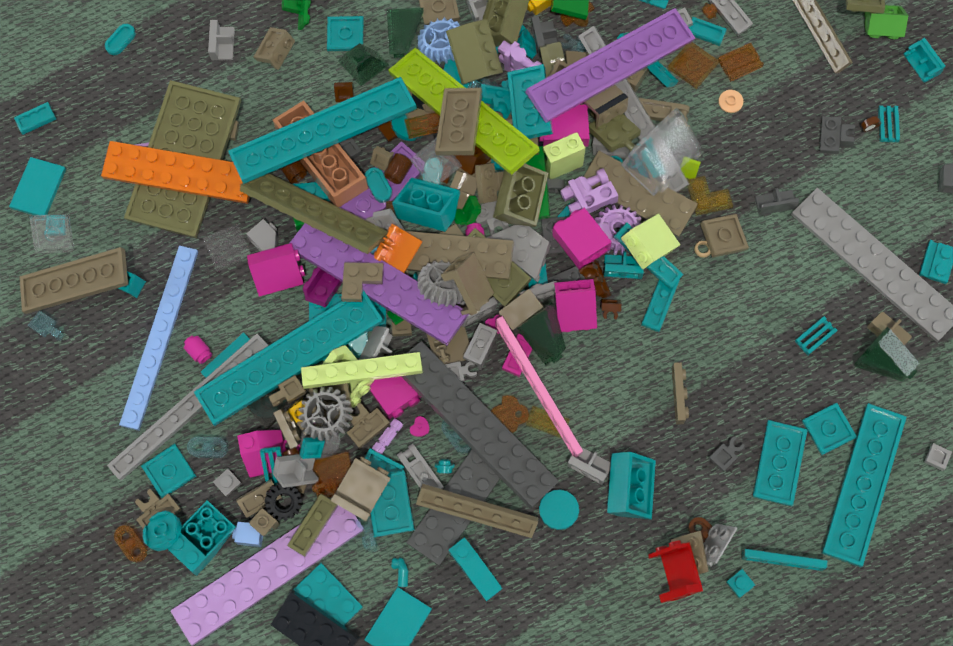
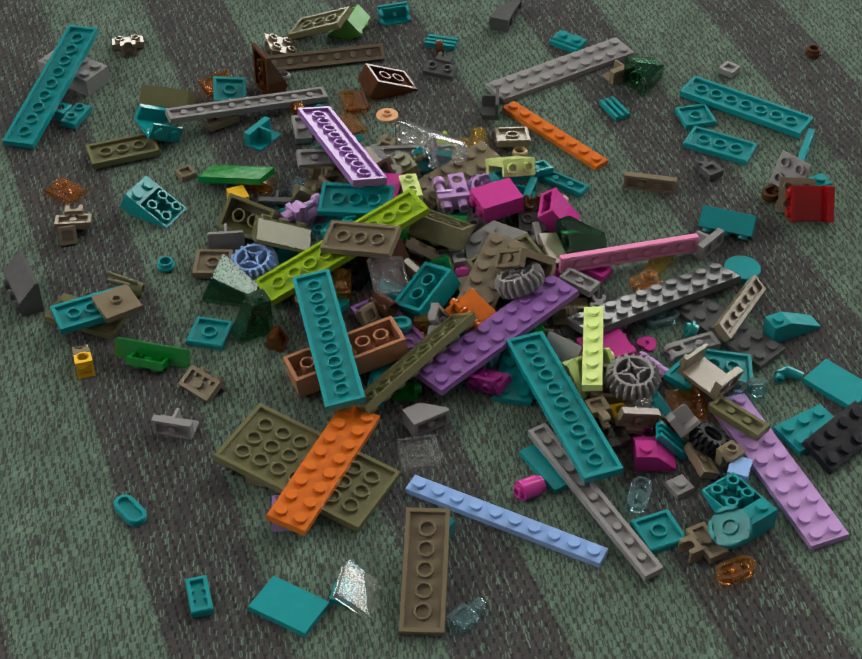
camera: 80 degrees left, 30 degrees down
(276, 269) = (462, 406): dark pink brick -> none
(358, 274) = (496, 338): dark tan plate -> none
(744, 279) = (555, 135): none -> orange plate
(785, 85) = (385, 82): none -> reddish brown slope

